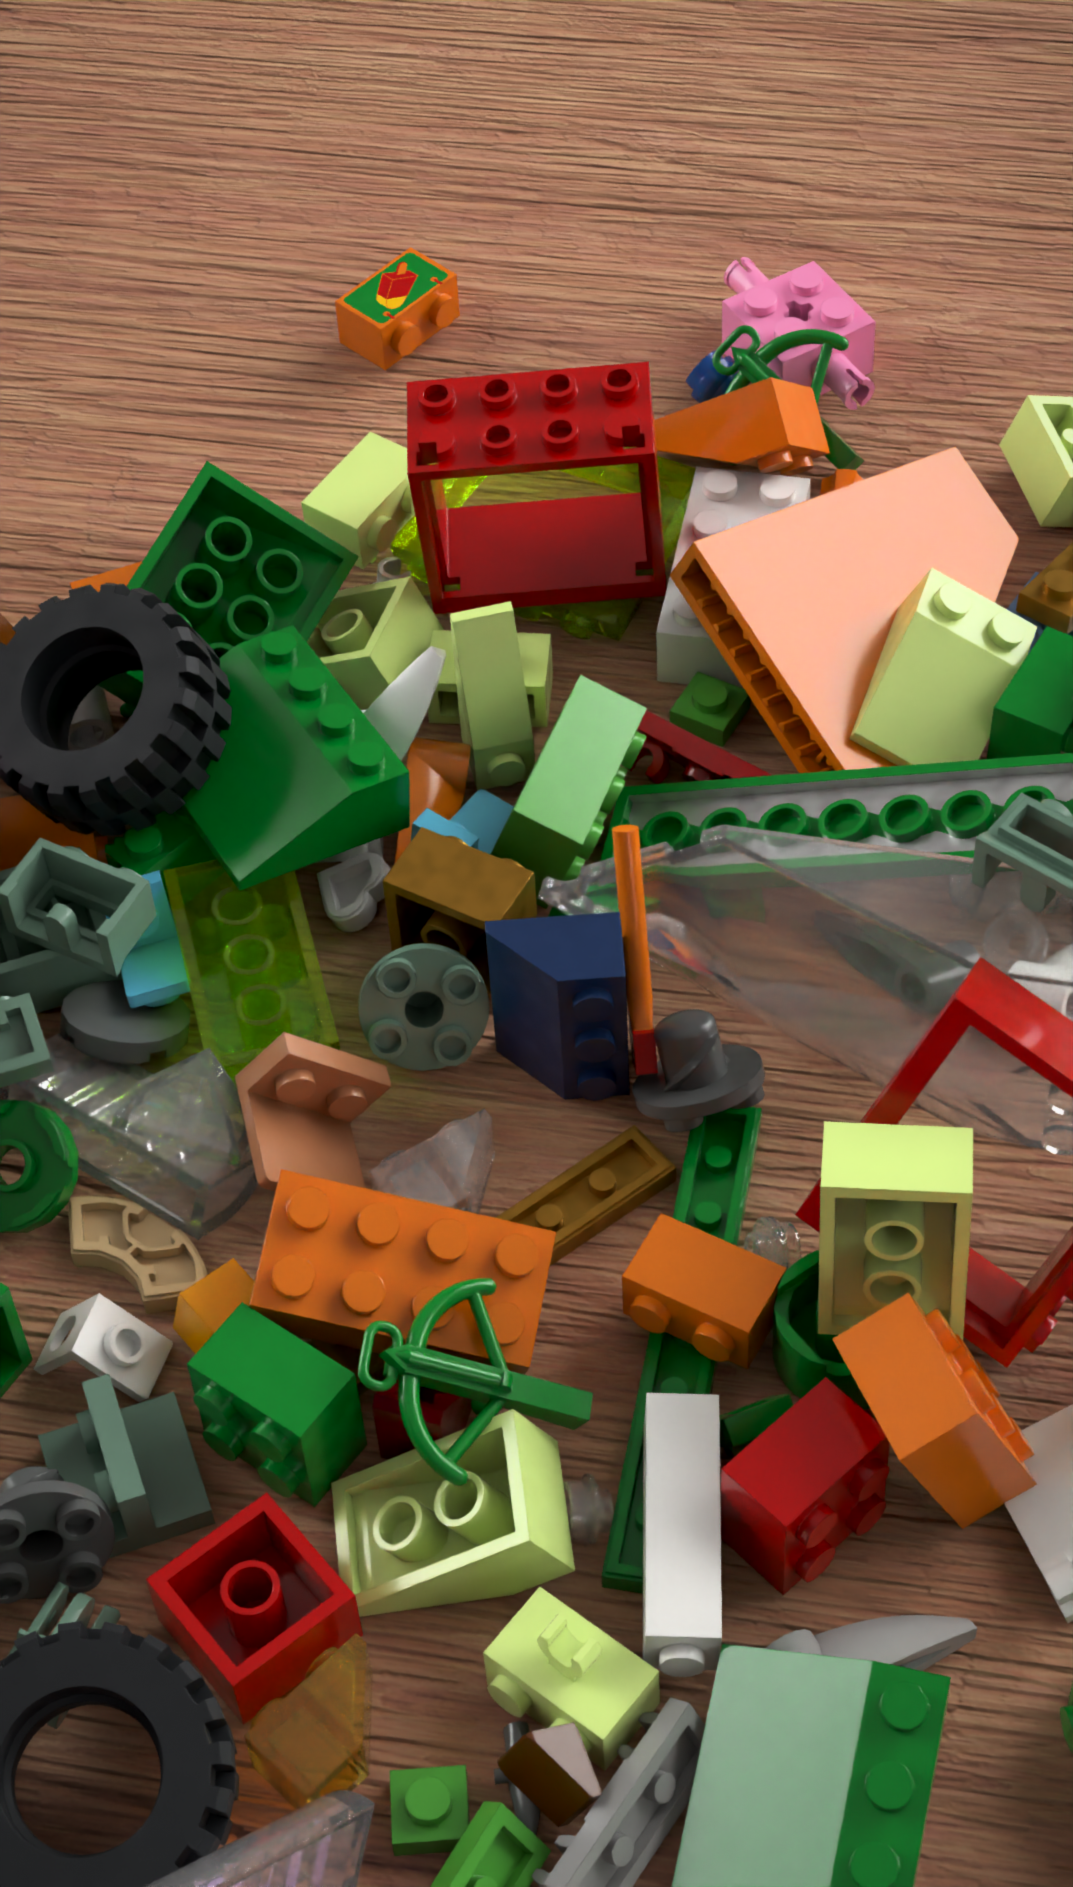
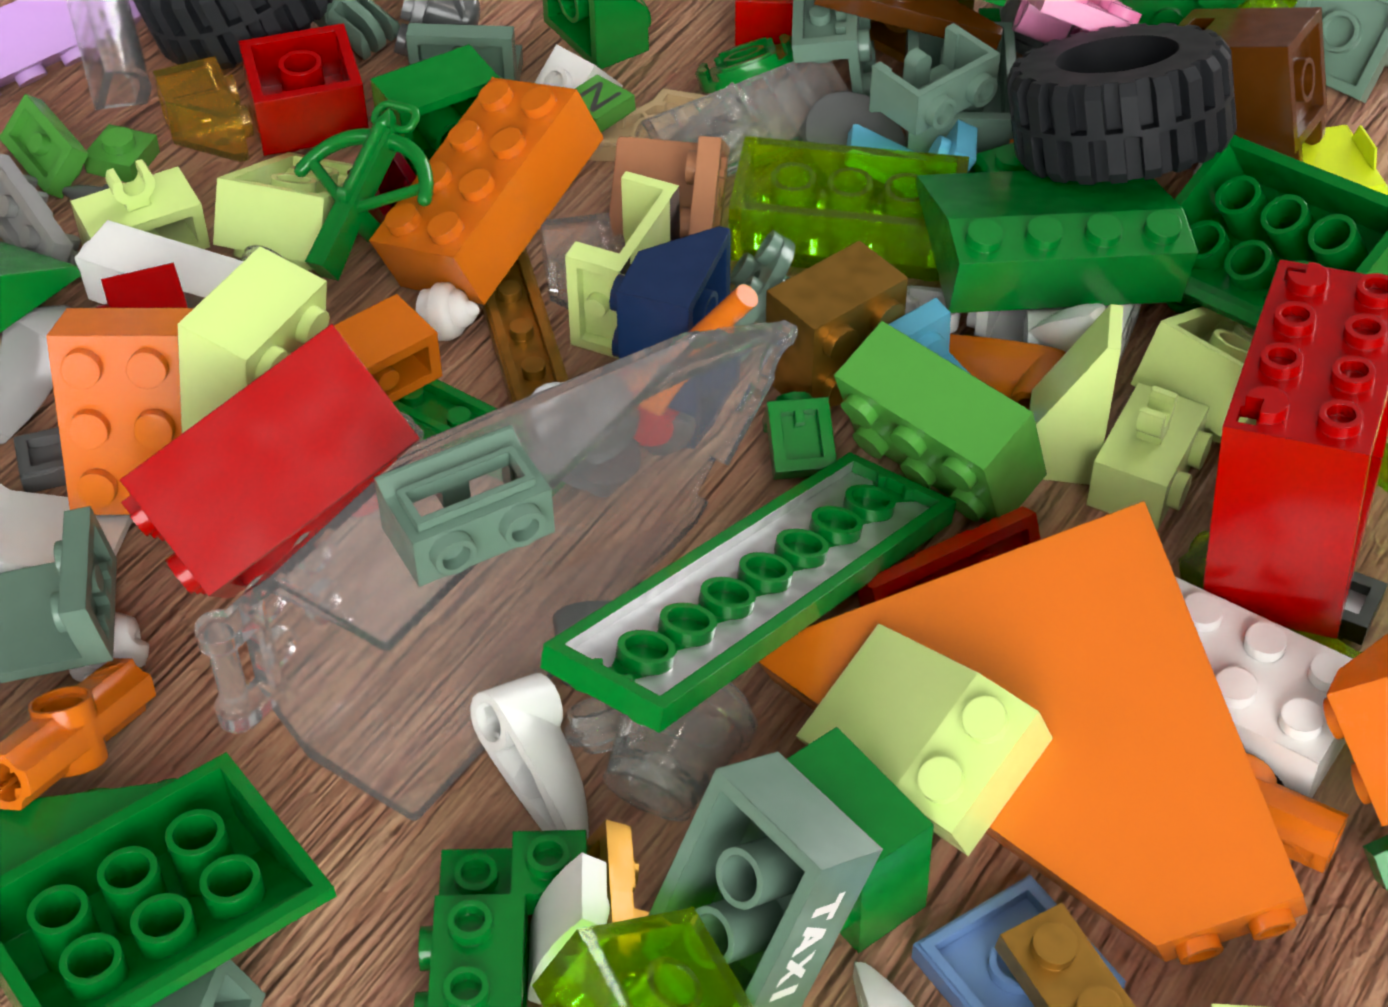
camera: 110 degrees right, 5 degrees down
(149, 1285) = (606, 101): none -> bright green tile
(418, 1095) = (649, 220): none -> yellowish green panel
(553, 1772) = (73, 179): reddish brown slope -> none
(570, 1288) = (446, 310): none -> white plate
(961, 1573) = (40, 460): none -> dark grey tile

